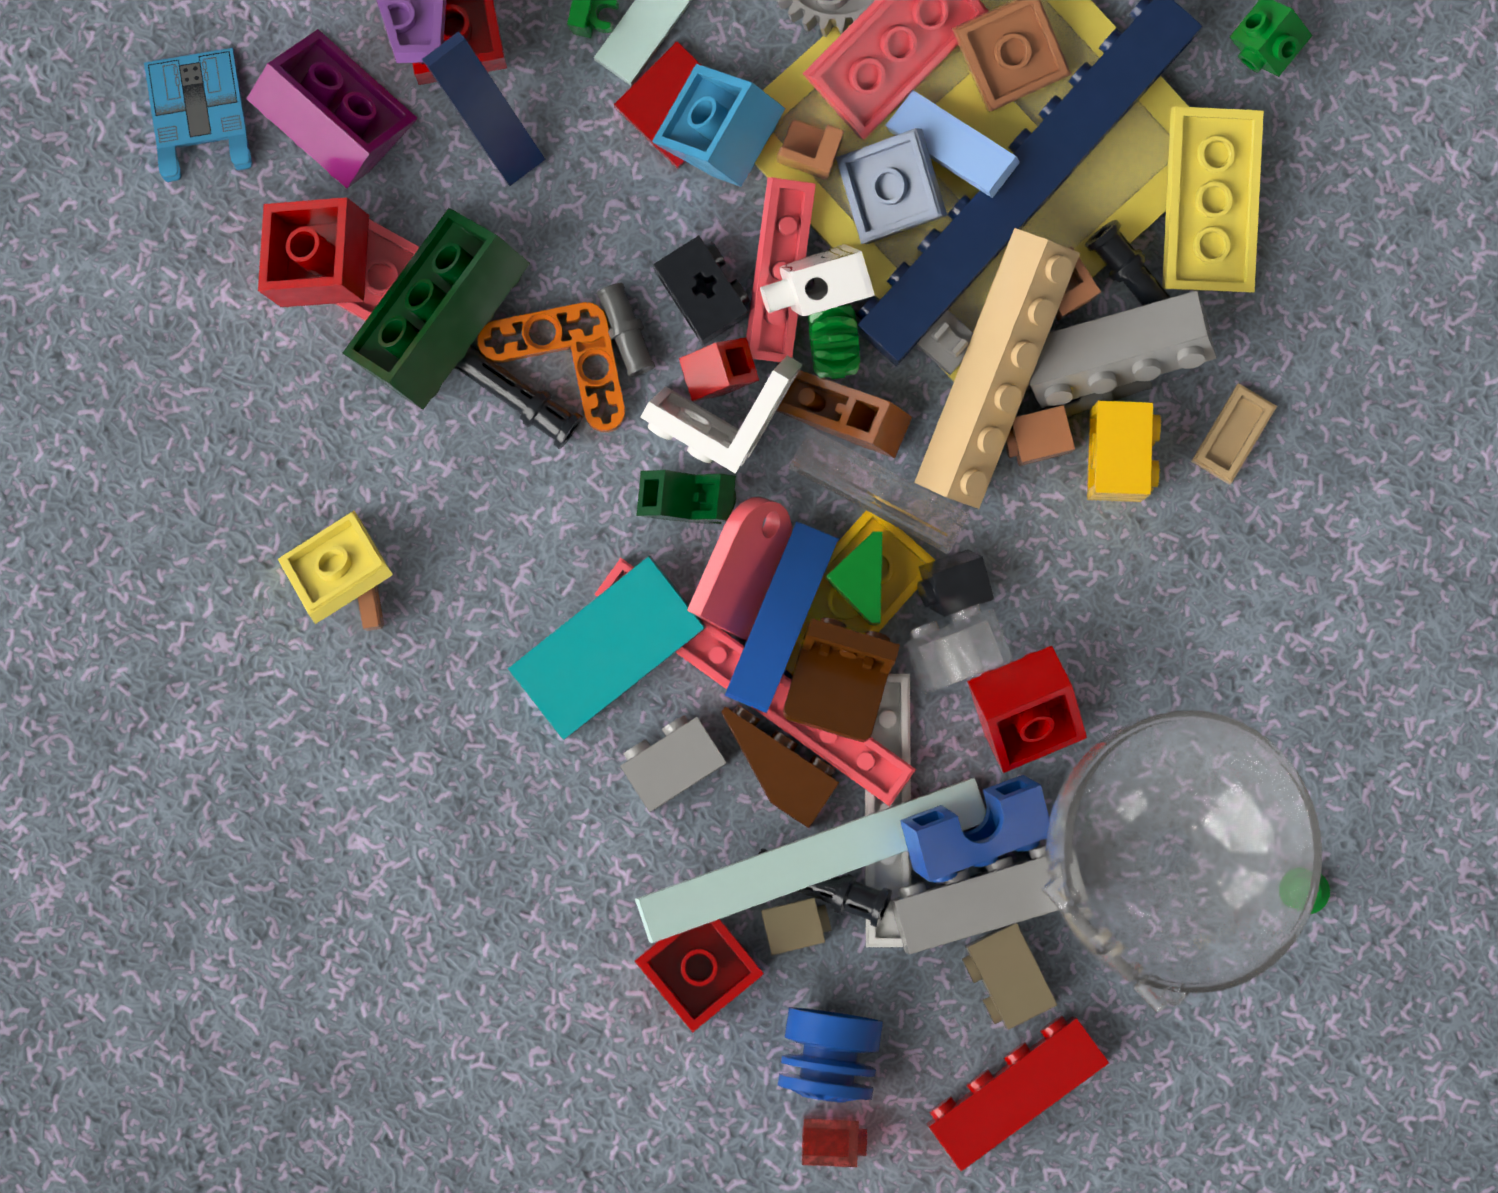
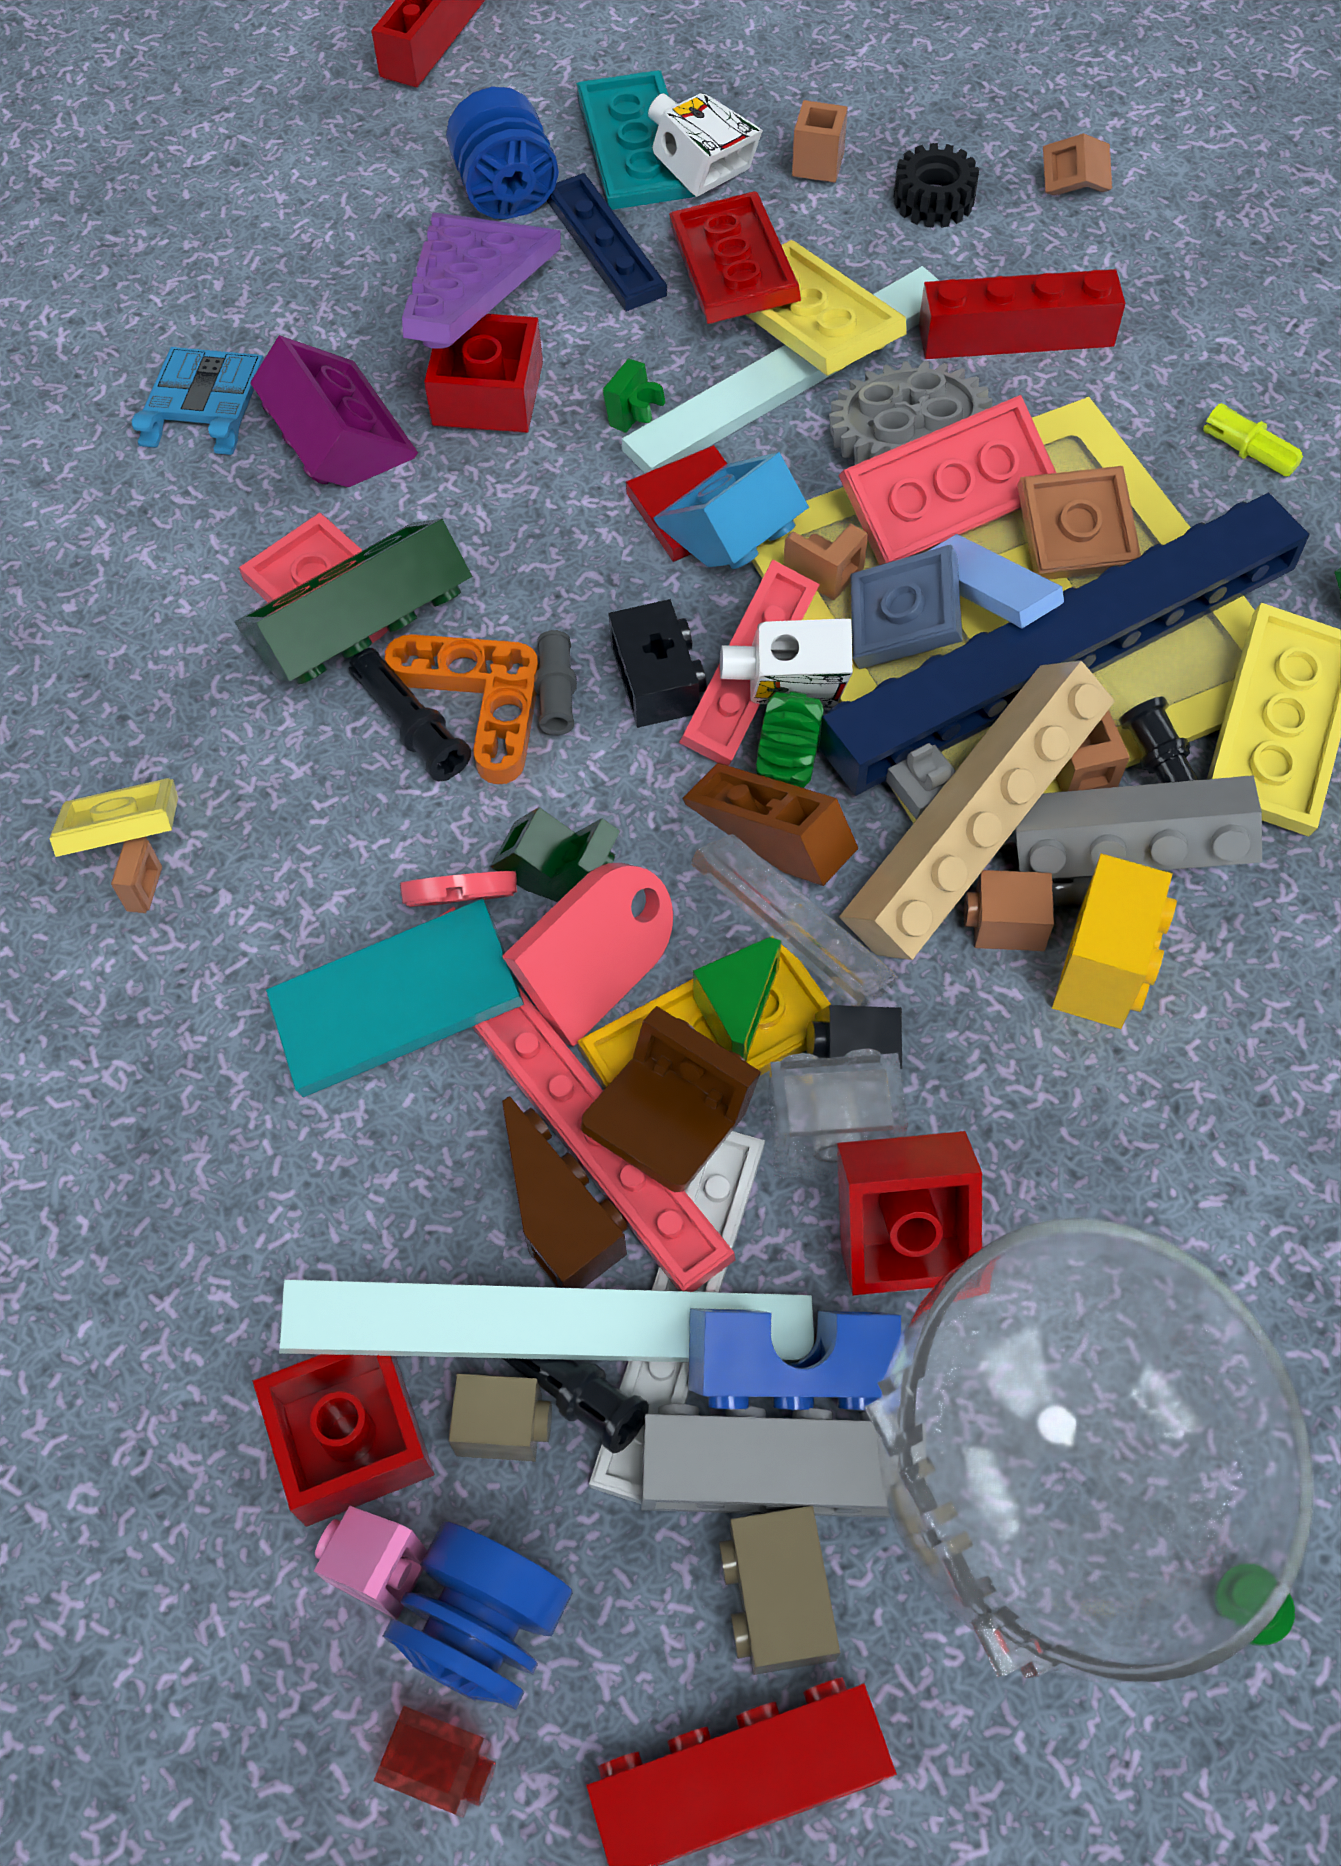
camera: 25 degrees right, 25 degrees down
(313, 252) = (245, 512): red brick -> none
(483, 108) = (481, 417): dark blue tile -> none
(623, 548) = (458, 888): none -> coral tile
(672, 763) = (418, 1157): light grey brick -> none
(709, 435) = (660, 788): white bracket -> none
(719, 369) = (644, 735): red brick -> none
(746, 1041) = (370, 1559): none -> bright pink slope
(781, 617) = (607, 1022): blue slope -> none
(1234, 433) = (1259, 981): tan tile -> none

